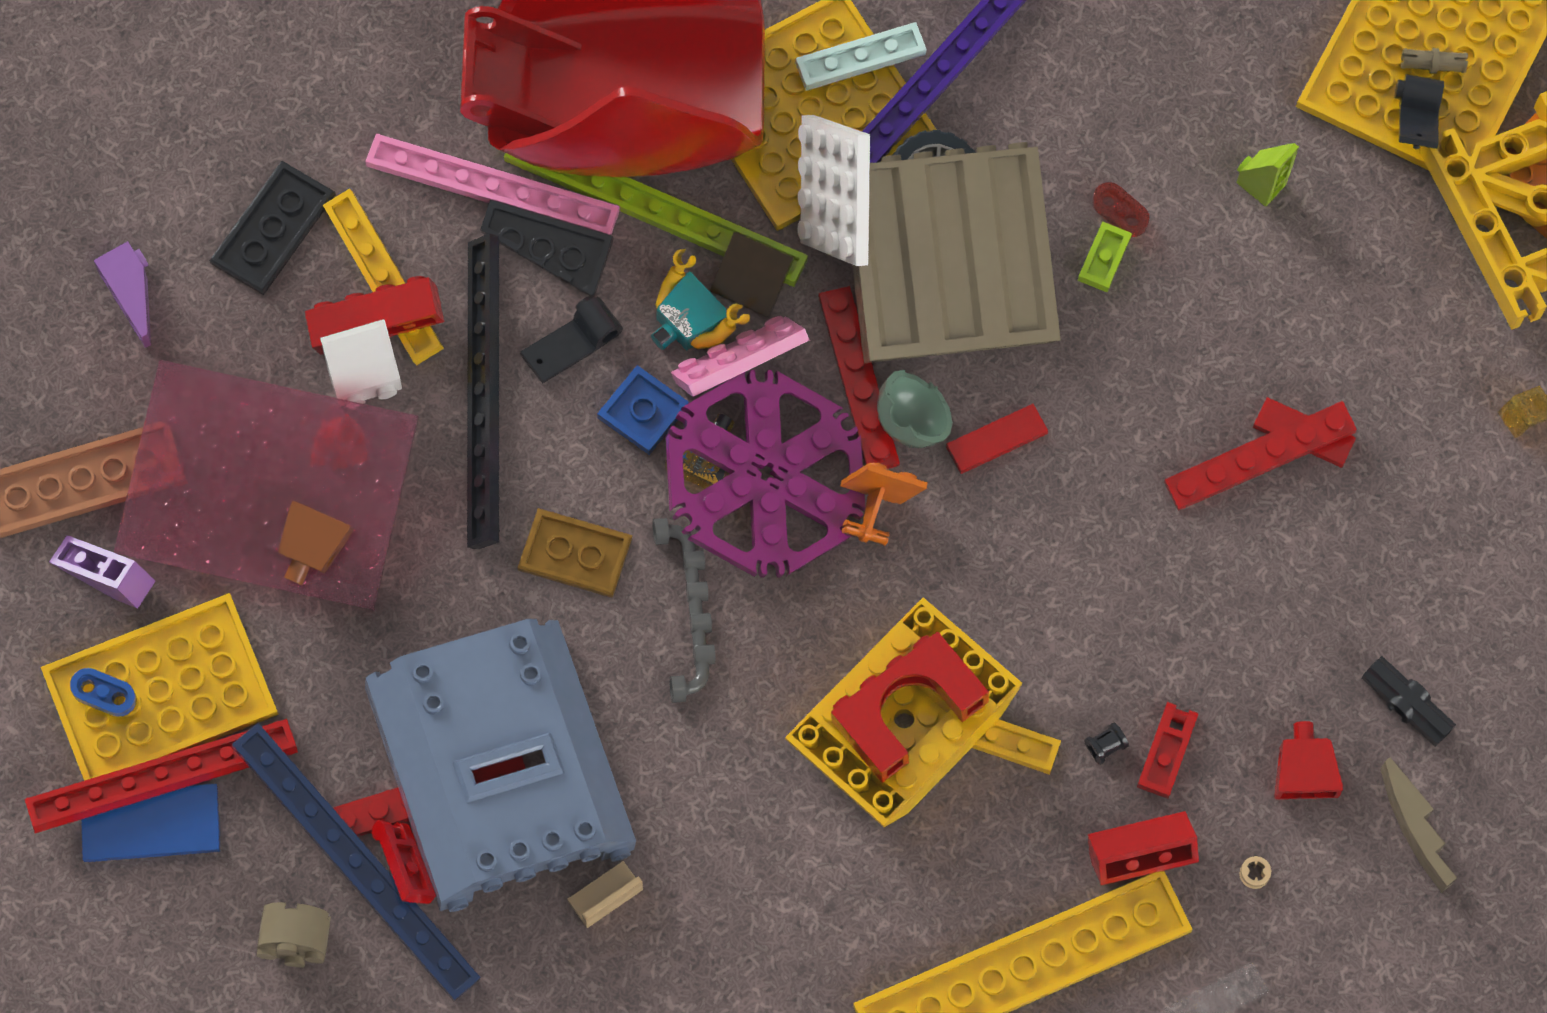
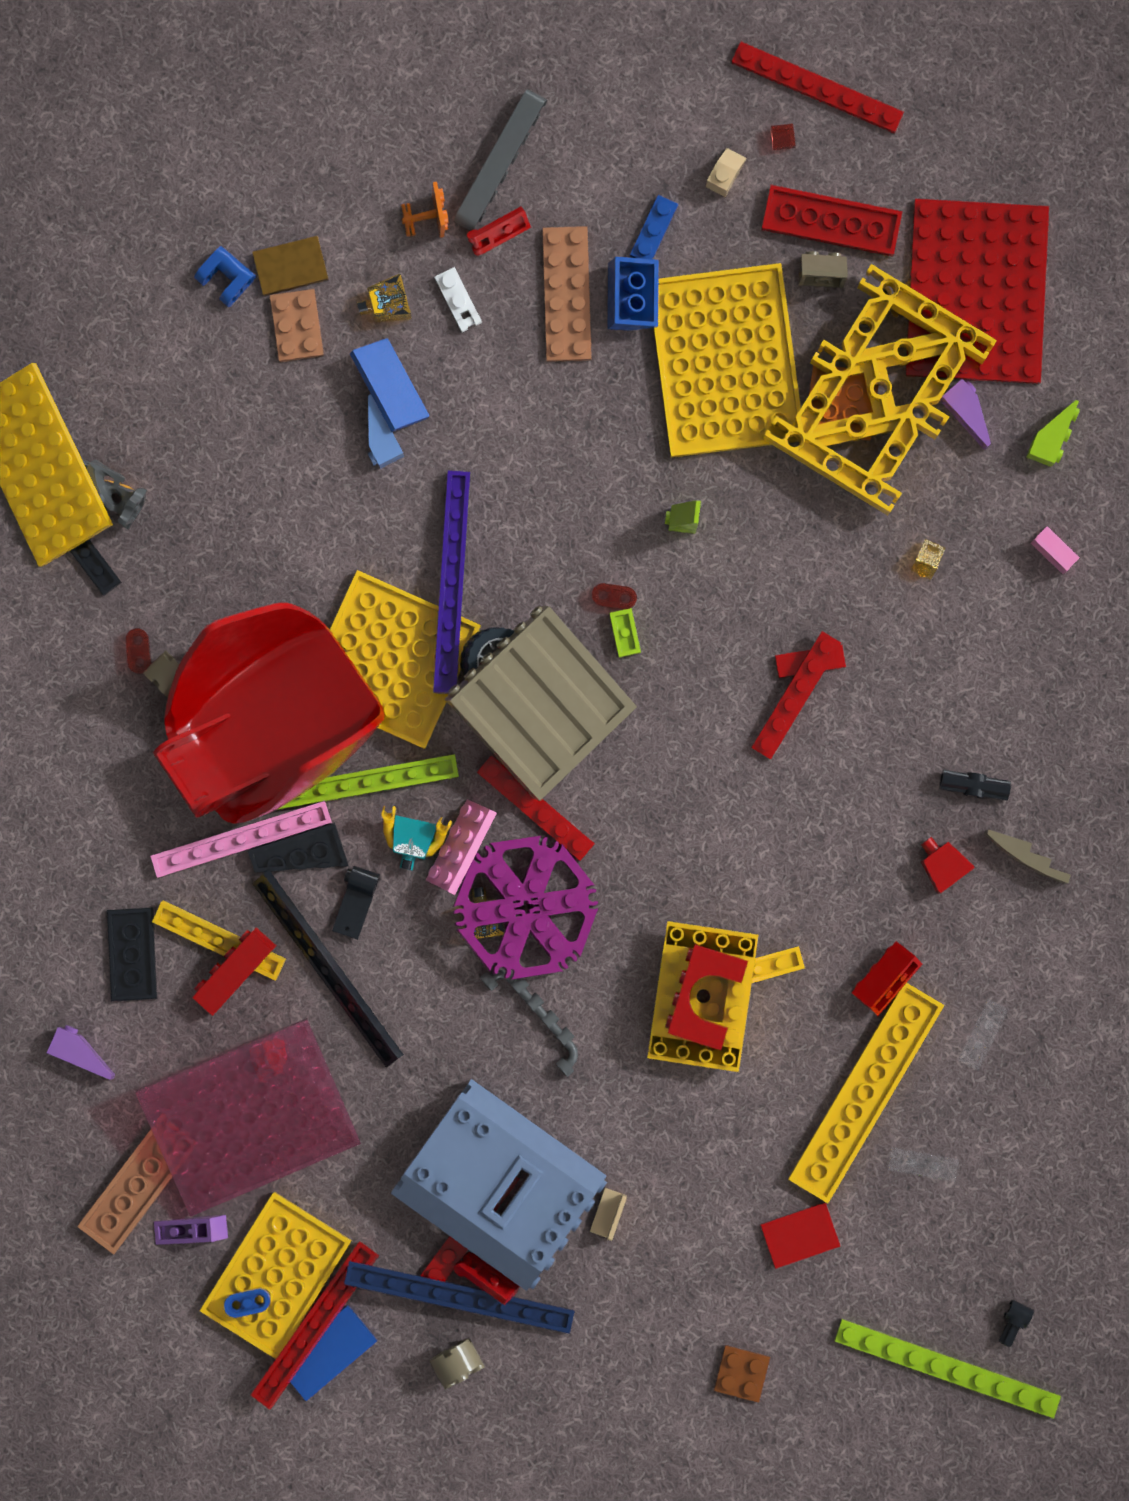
camera: 30 degrees left, 15 degrees up
(311, 541) = (299, 1134): dark orange torso -> none
(362, 363) = (251, 1009): white slope -> none
(575, 552) = (449, 1027): pearl gold tile -> none
(642, 410) = (426, 915): blue plate -> none
(752, 274) = (431, 789): dark brown tile -> none
(834, 189) = (449, 716): white plate -> none
(860, 56) = (399, 609): light aqua plate -> none
(879, 485) = (594, 870): orange plate -> none
(913, 411) = (584, 810): sand green cylinder -> none
(996, 438) = (639, 788): red tile -> none
(1106, 743) = (824, 929): black bush -> none
(1167, 751) = (860, 909): red plate -> none
(1266, 873) = (961, 941): tan bush -> none
(1419, 110) = (749, 419): black door -> none
(1434, 60) = (734, 375): dark tan pin -> none

